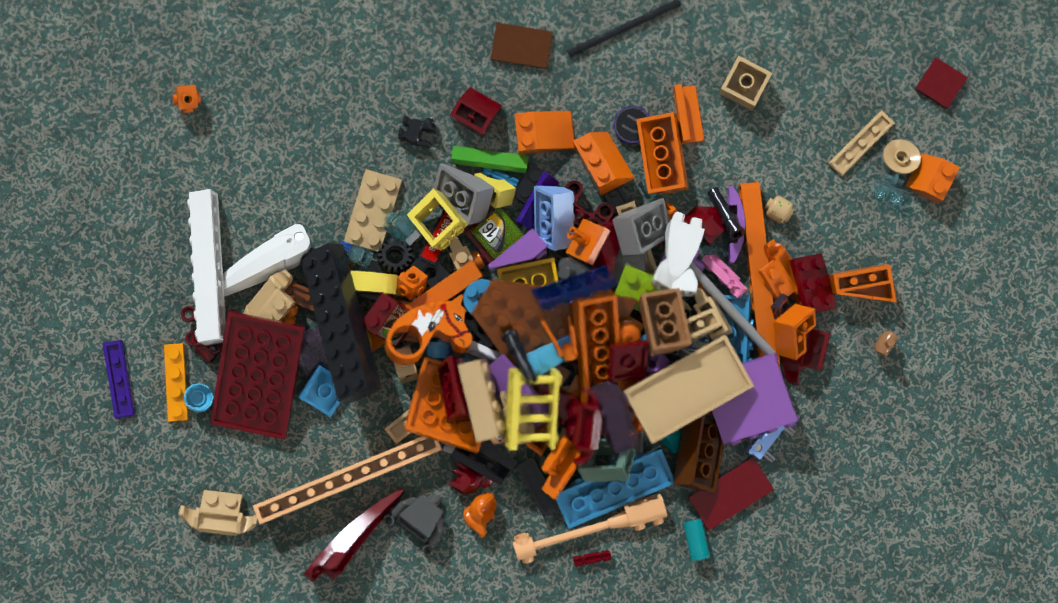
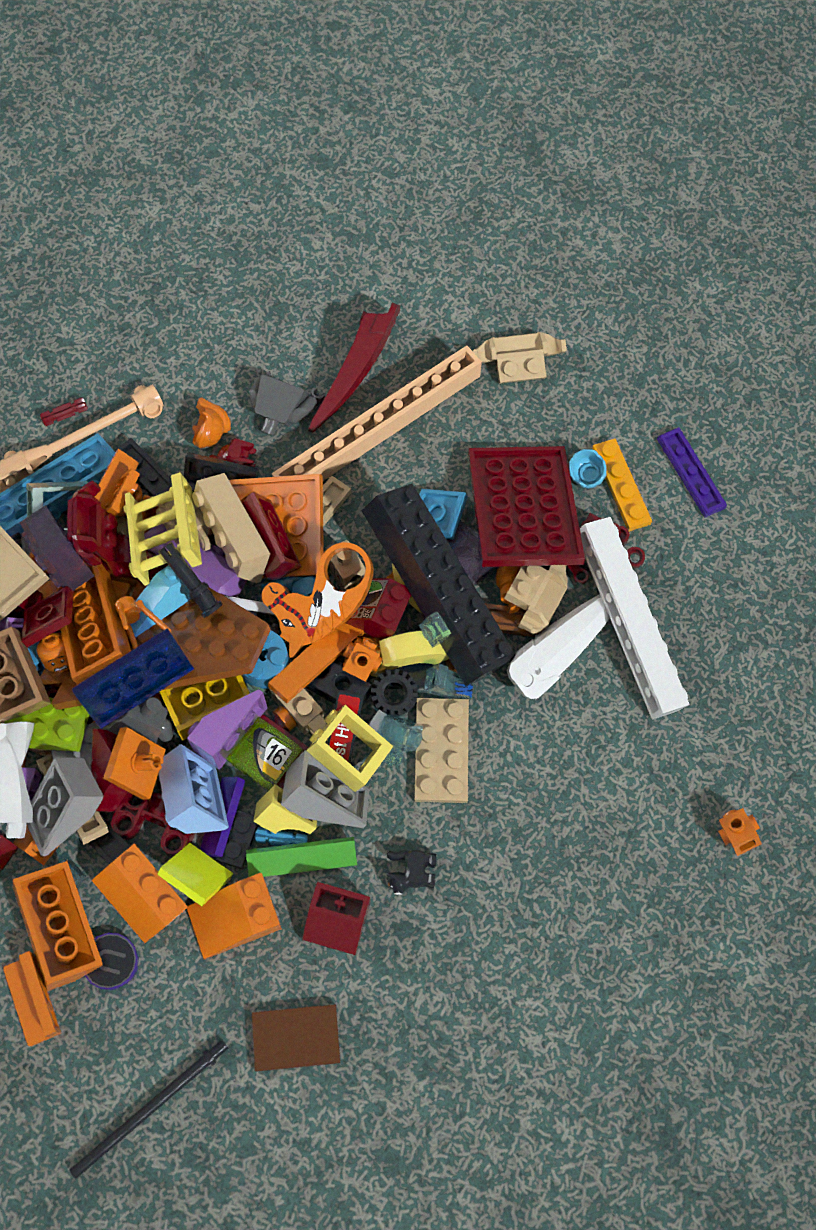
camera: 165 degrees right, 15 degrees down
(354, 285) = (434, 629): none -> clear light blue plate
(563, 161) = (195, 874): none -> neon yellow tile

